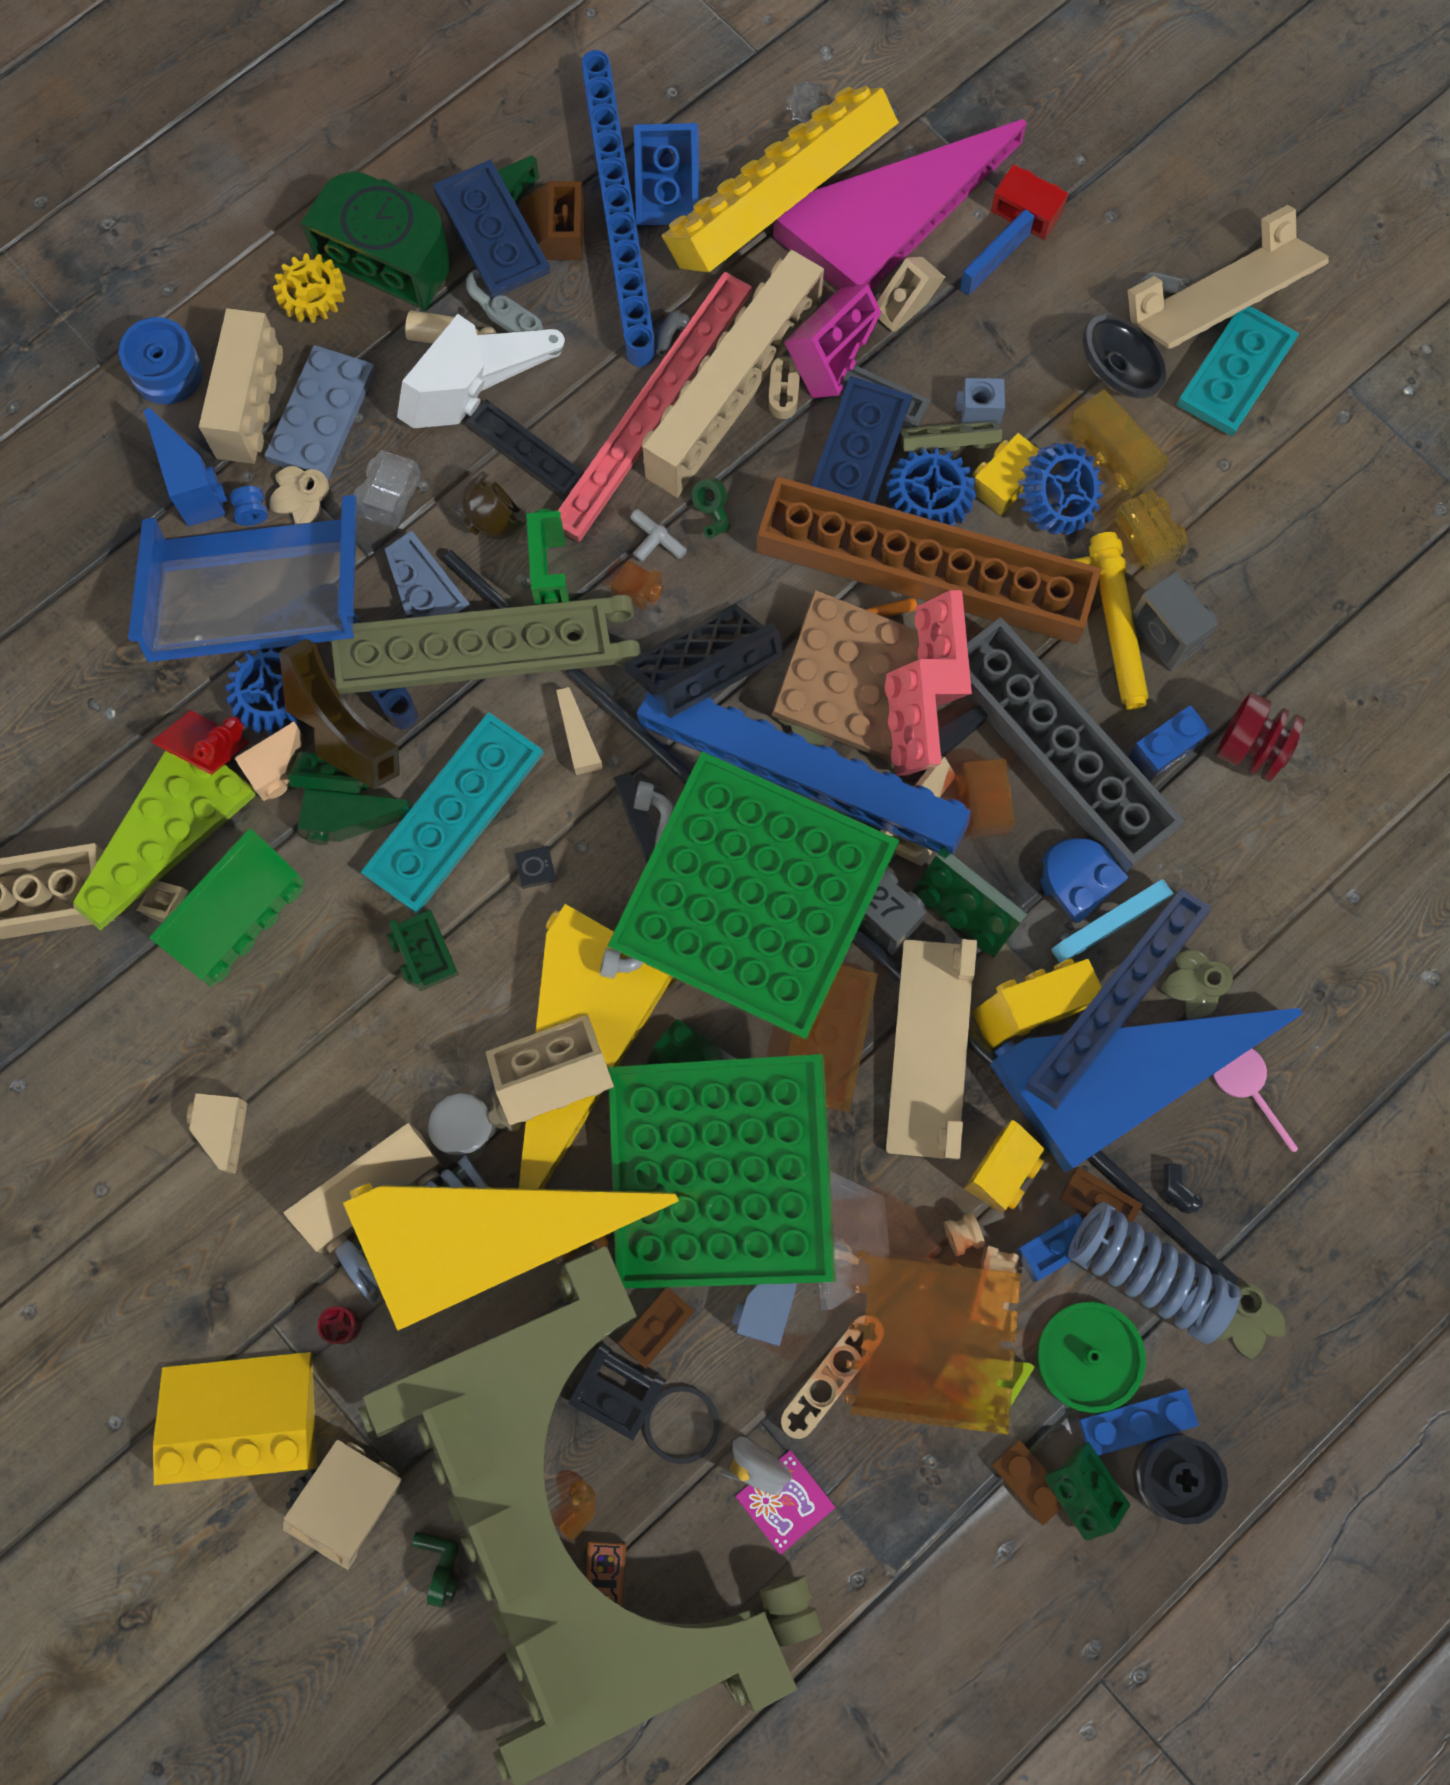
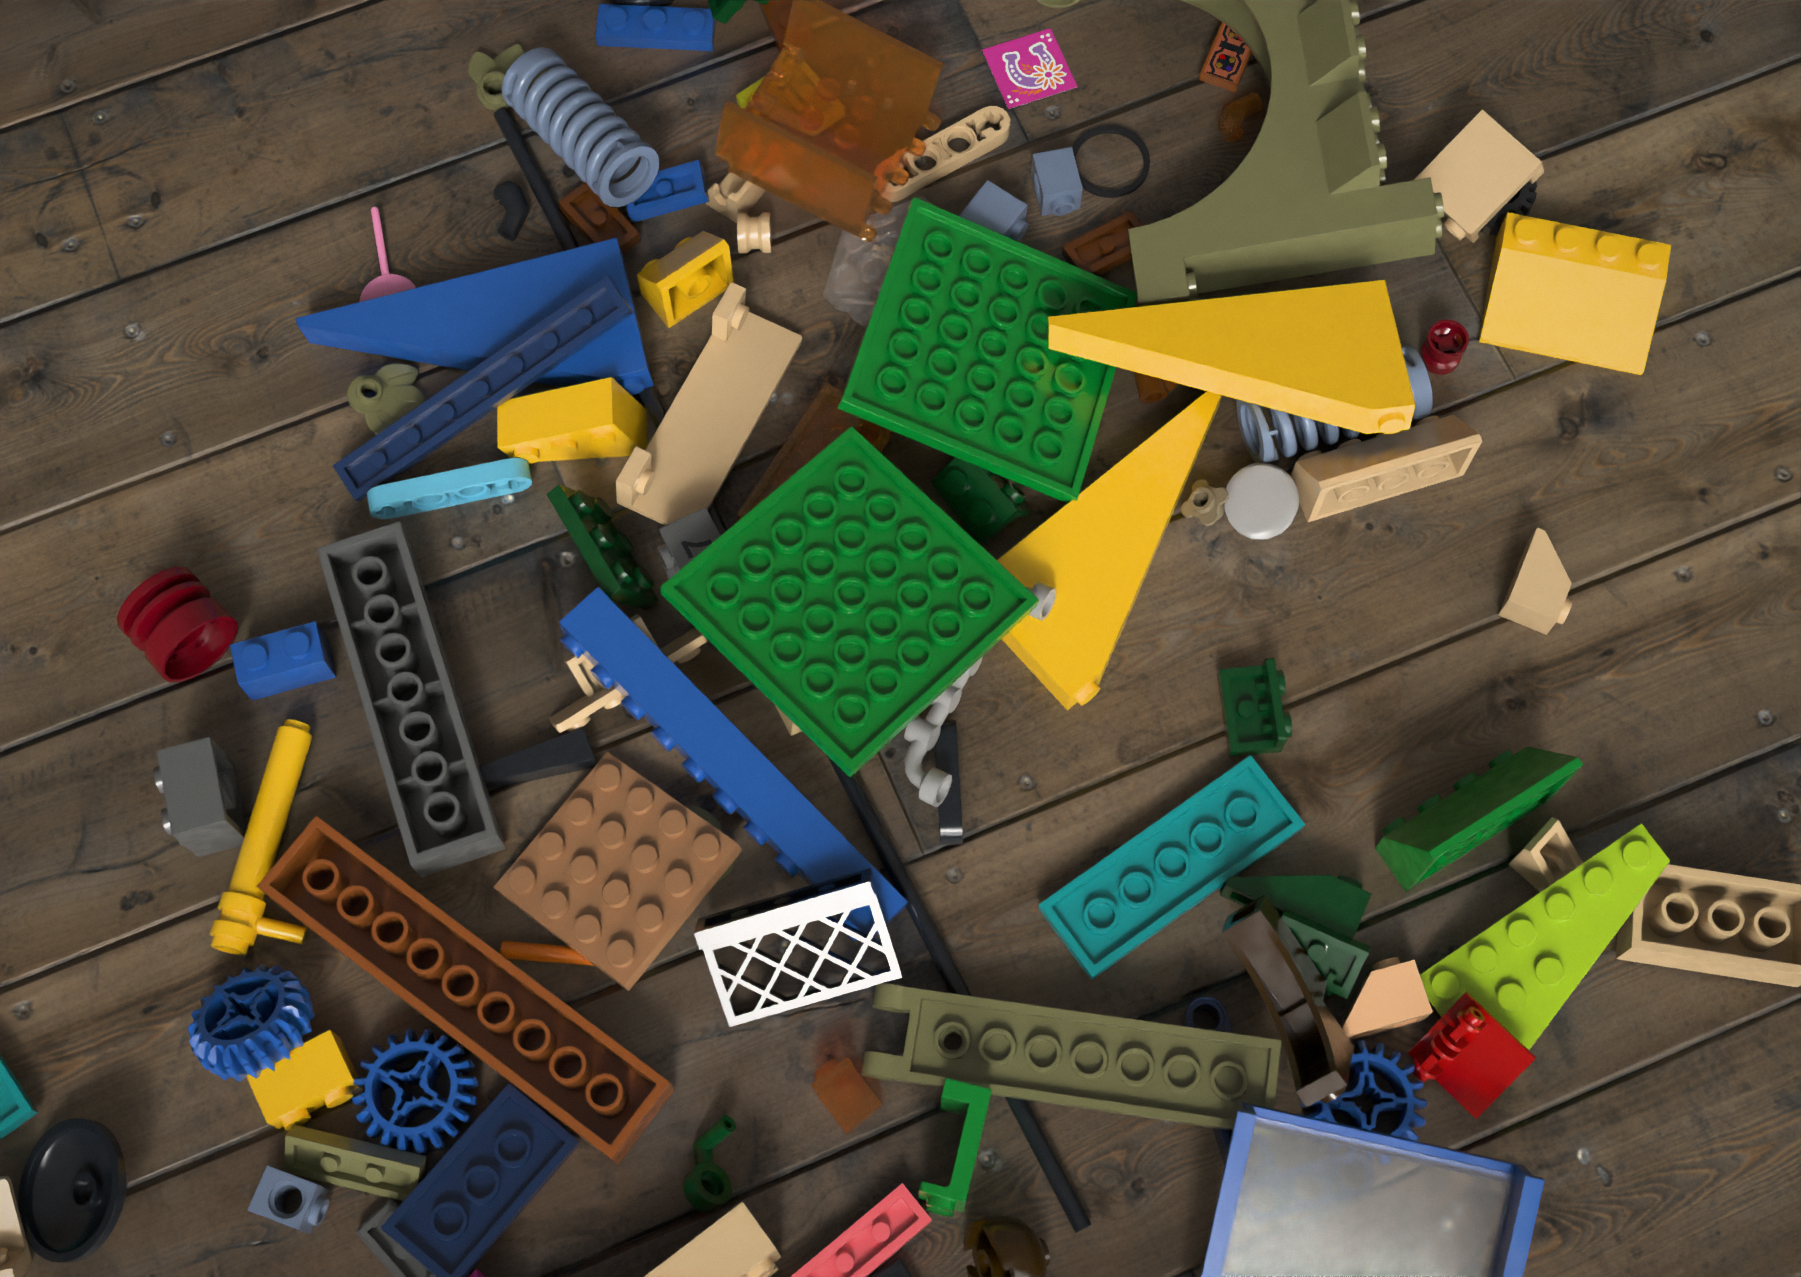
camera: 160 degrees left, 5 degrees down
(421, 581) = (1128, 1183): sand blue wing -> none
(442, 1584) = (1392, 90): dark green plate -> none
(535, 867) = (1090, 770): black tile -> none
(548, 1070) = (1146, 509): tan slope -> none
(580, 743) = (988, 905): tan piece -> none
(610, 1403) = (1164, 183): black plate -> none
(657, 535) = (795, 1158): light grey piece -> none
(719, 1375) = (1056, 182): none -> sand blue brick
(757, 1467) = (1049, 88): light grey piece -> none
(929, 682) = (536, 805): coral bracket -> none
(987, 797) = (526, 670): clear orange brick -> none
(1080, 876) = (460, 552): blue slope -> none
(1090, 1357) = (674, 94): green piece -> none
(1118, 443) = (144, 1075): clear yellow brick -> none
(1151, 530) = (163, 939): clear yellow brick -> none

